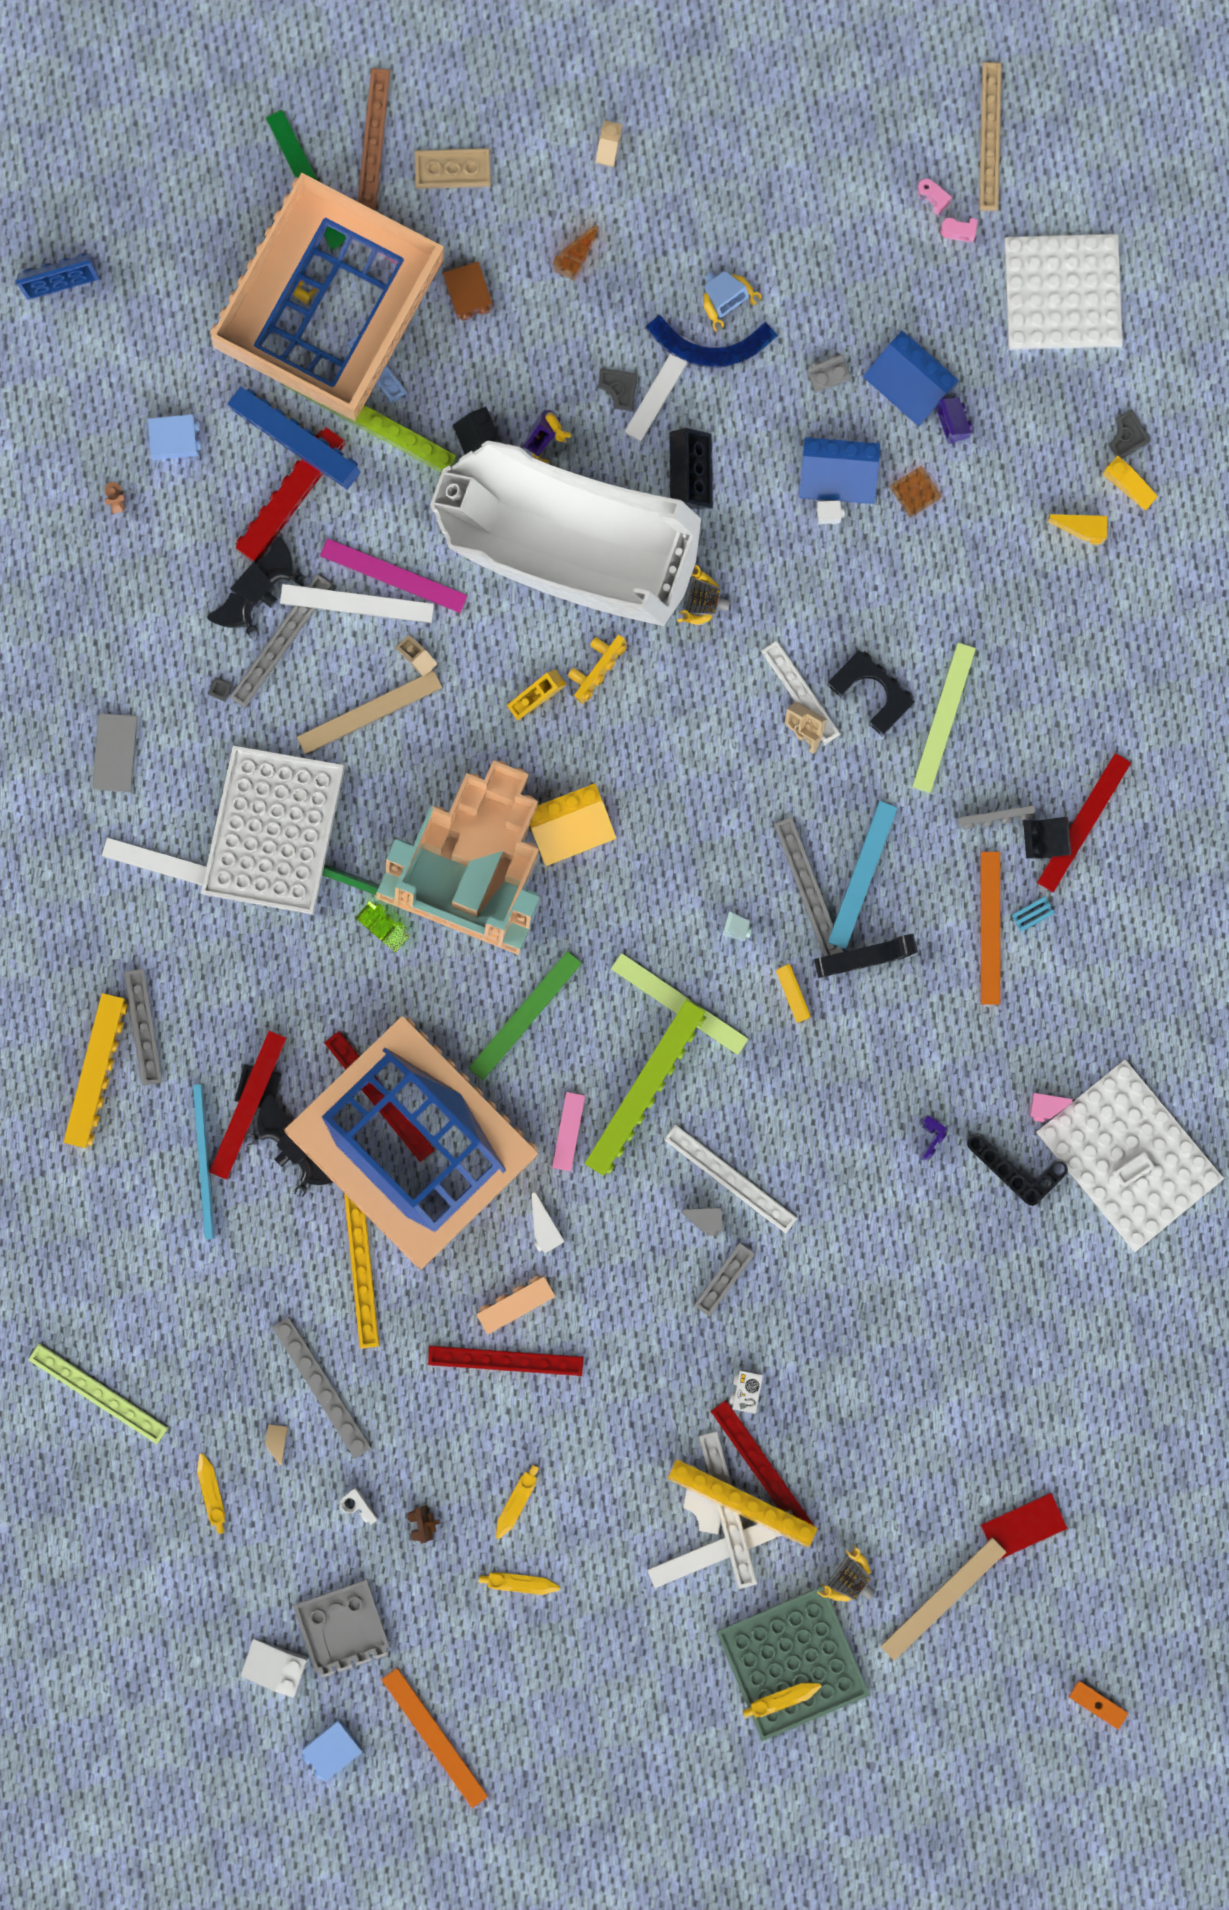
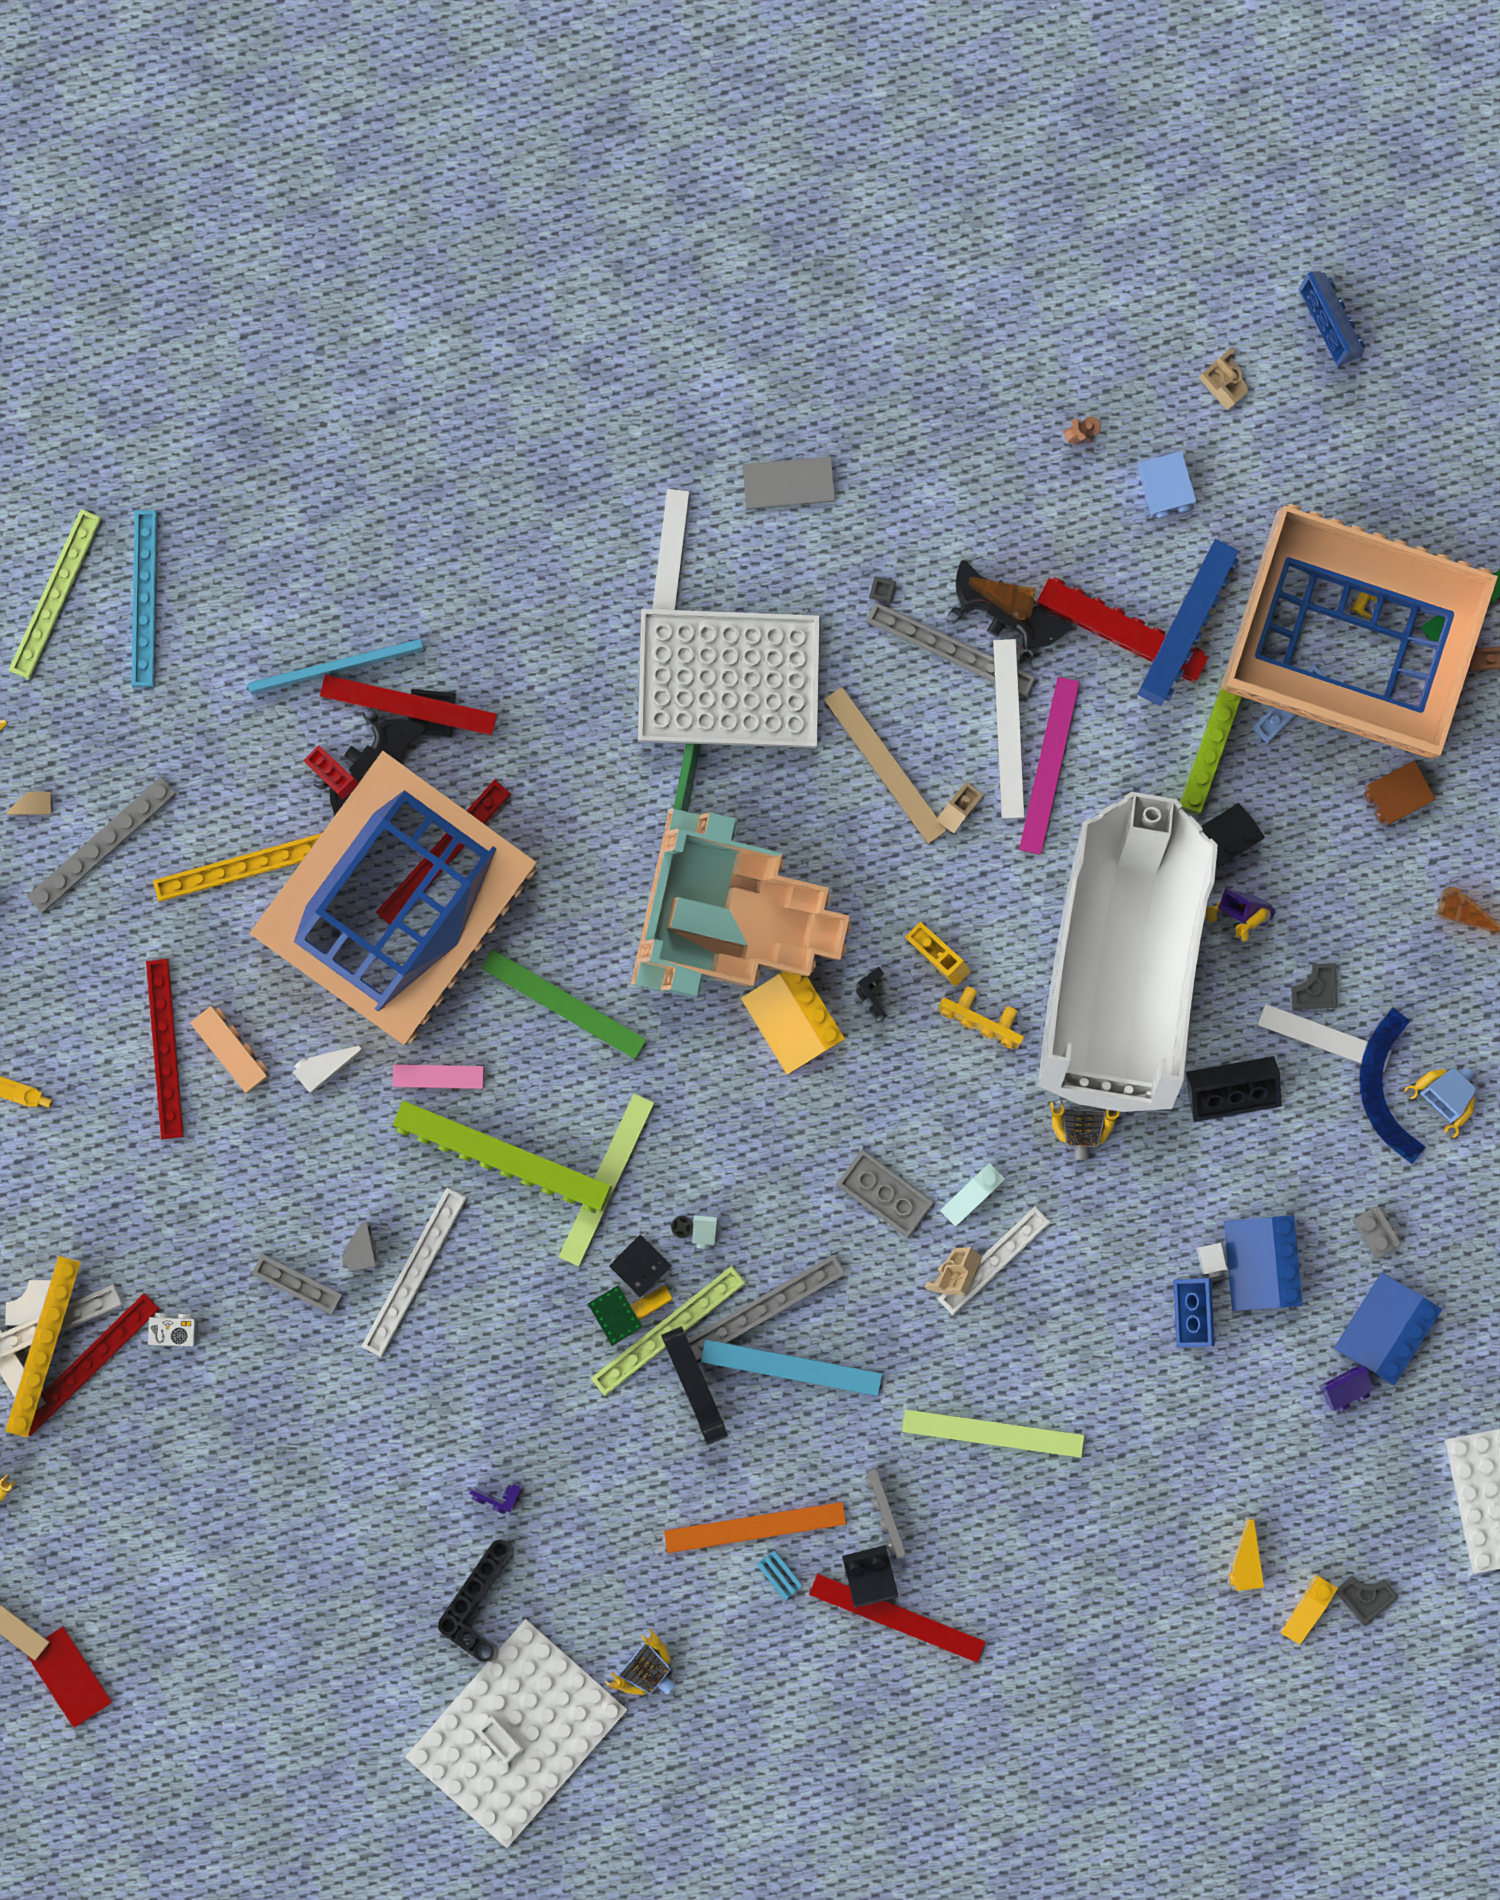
camera: 75 degrees right, 0 degrees up
(94, 373) = (1225, 380): none -> tan slope
(95, 1071) = (419, 525): yellow brick -> none
(115, 1317) = (144, 598): none -> medium azure tile
(142, 1027) = (478, 570): light grey plate -> none
(246, 583) = (1010, 598): none -> clear orange slope
(294, 1178) = (331, 772): none -> red plate
(382, 926) = (637, 824): clear neon green brick -> none
(559, 760) = (871, 980): none -> black bracket
(729, 773) = (885, 1193): none -> light grey tile
(729, 944) = (682, 1226): none -> pearl dark grey wheel
(742, 699) = (972, 1194): none -> light aqua slope
(757, 986) = (640, 1266): none -> black bracket
(795, 1014) = (615, 1315): none -> dark green sticker
(821, 986) = (652, 1342): none -> yellowish green tile
(862, 667) = (1034, 1325): black arch -> none
(871, 534) = (1193, 1312): none -> blue slope
(915, 492) = (1254, 1356): clear orange tile -> none
(1046, 1106) = (556, 1626): bright pink slope -> none
(1094, 1037) = (645, 1669): none -> torso

